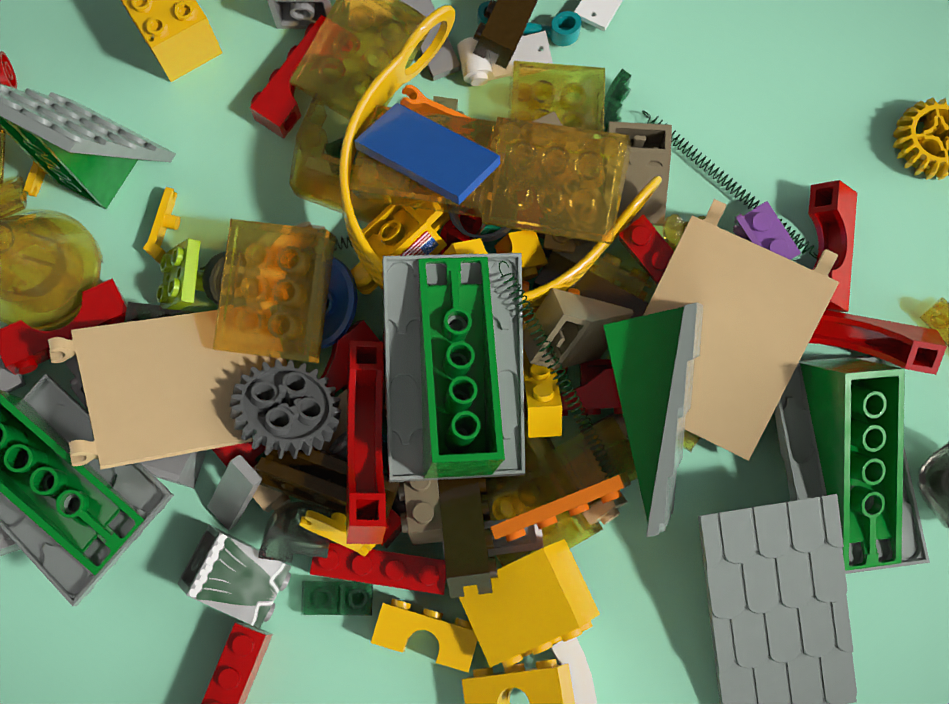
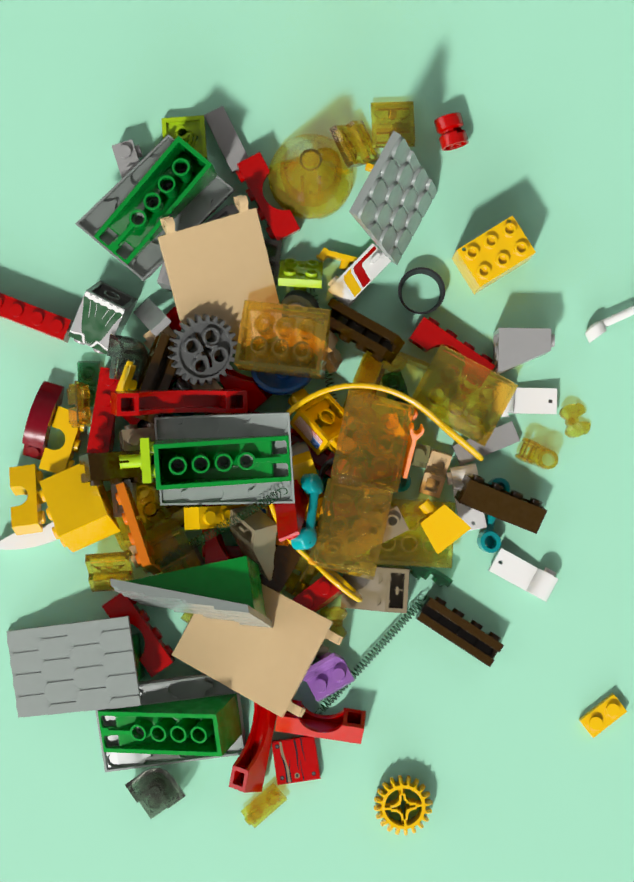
camera: 90 degrees right, 10 degrees up
(188, 200) = (358, 275): none -> white door
(205, 92) = (422, 270): none -> black tyre
(270, 177) = (364, 332): none -> dark brown brick
(353, 607) = (81, 413): none -> clear yellow hinge
(392, 669) = (41, 419): none -> dark red arch
(428, 153) = (370, 441): blue tile -> none
(456, 489) = (143, 460): none -> lime plate
(475, 102) = (435, 473): none -> tan slope
(547, 73) = (441, 525): none -> yellow torso
(548, 264) = (291, 515): none -> red slope
(571, 243) = (312, 486): none -> teal piece
(625, 557) = (108, 566): none -> clear yellow slope
(689, 66) = (460, 631): none -> dark brown brick
(748, 487) = (155, 654): none -> red arch
(885, 285) = (295, 759): none -> red tile

